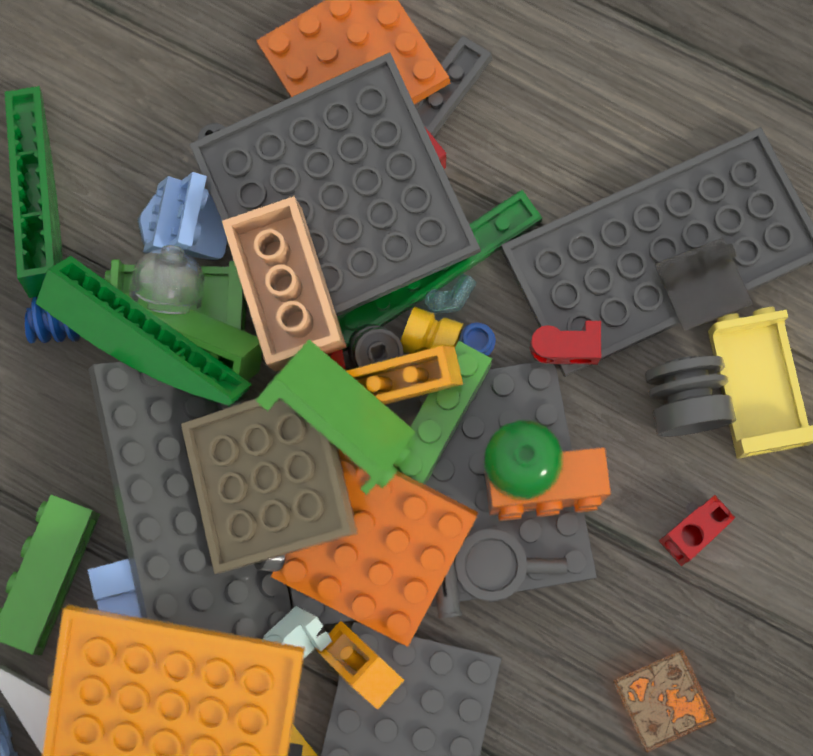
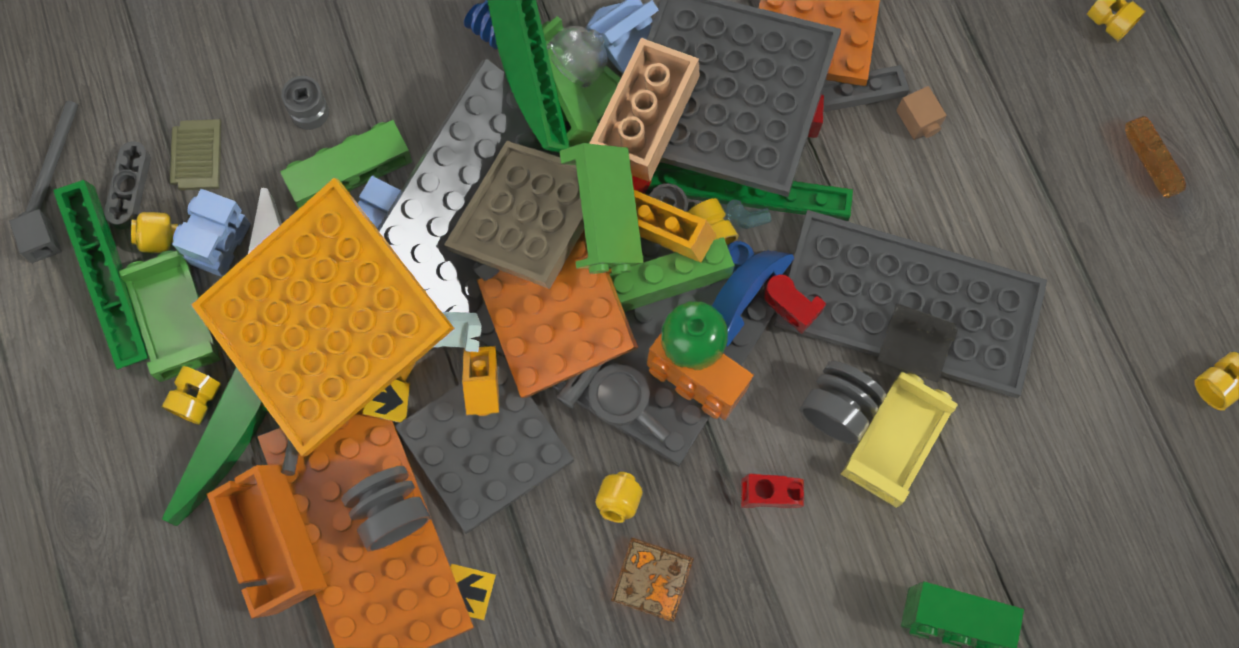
camera: 35 degrees right, 5 degrees down
(512, 365) = (745, 284): none -> blue slope
(521, 65) = (921, 113): none -> medium nougat brick
(572, 655) = (618, 497): none -> yellow head

